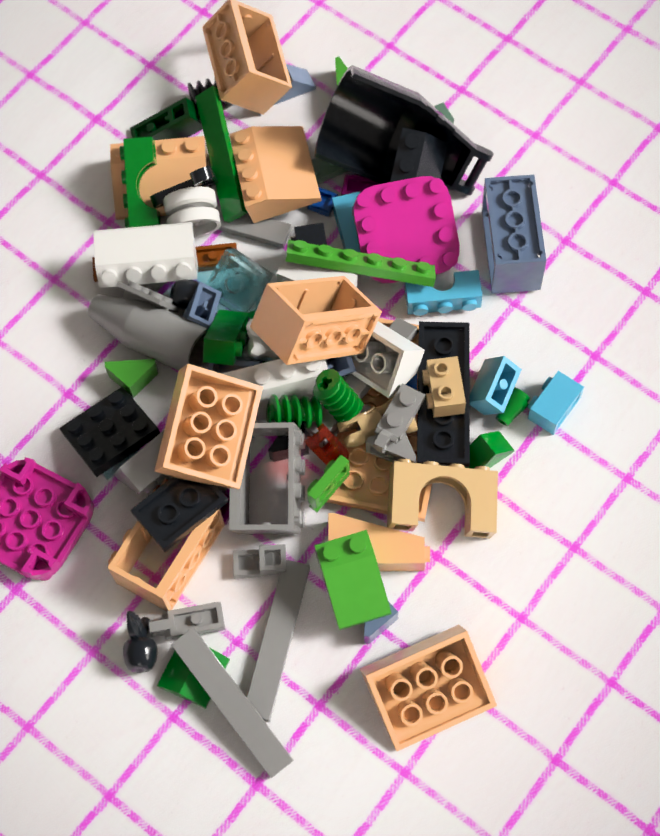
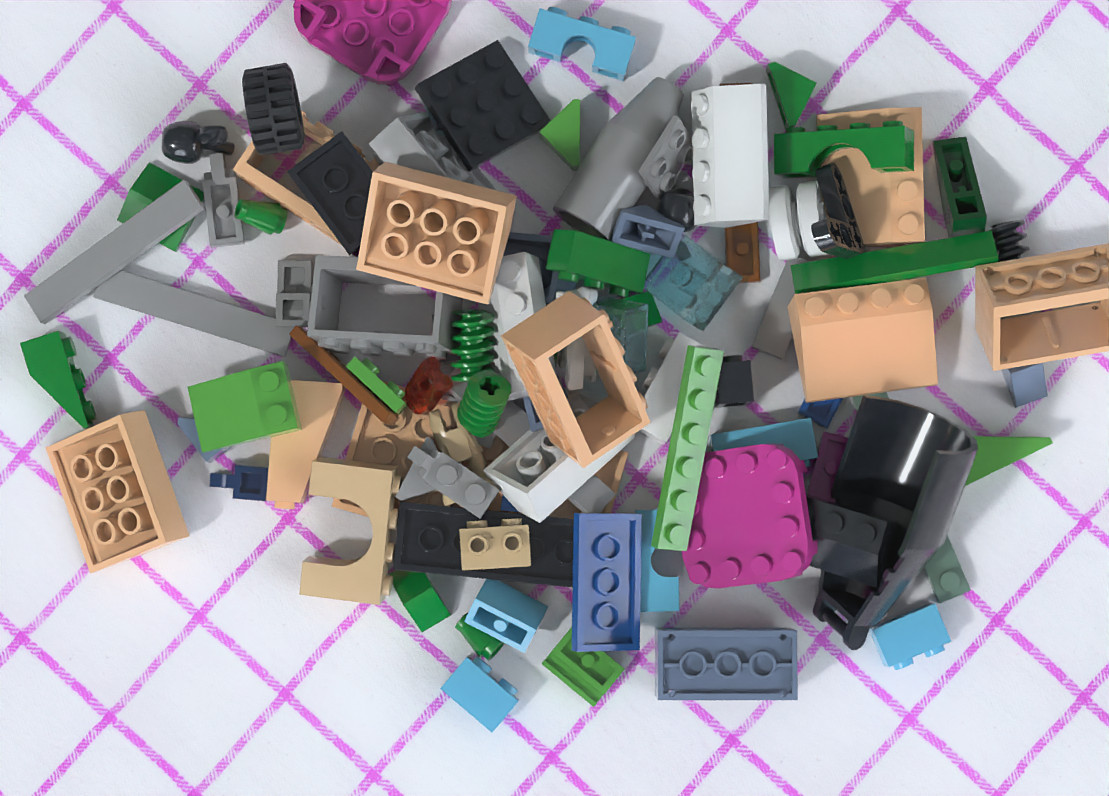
camera: 90 degrees right, 20 degrees up
(65, 350) = (555, 31): none -> medium azure arch
(96, 222) = (790, 92): none -> green slope
(113, 555) = (273, 109): none -> black tyre
(198, 587) = (262, 215): none -> green cone
(321, 512) = (345, 376): none -> dark orange tile
(332, 745) = (53, 368): none -> green slope
(412, 585) = (247, 483): none -> dark blue plate
(463, 313) = (606, 581): none -> plate
(479, 128) = (910, 636): none -> medium azure brick
(525, 336) = (584, 672): none -> bright green plate

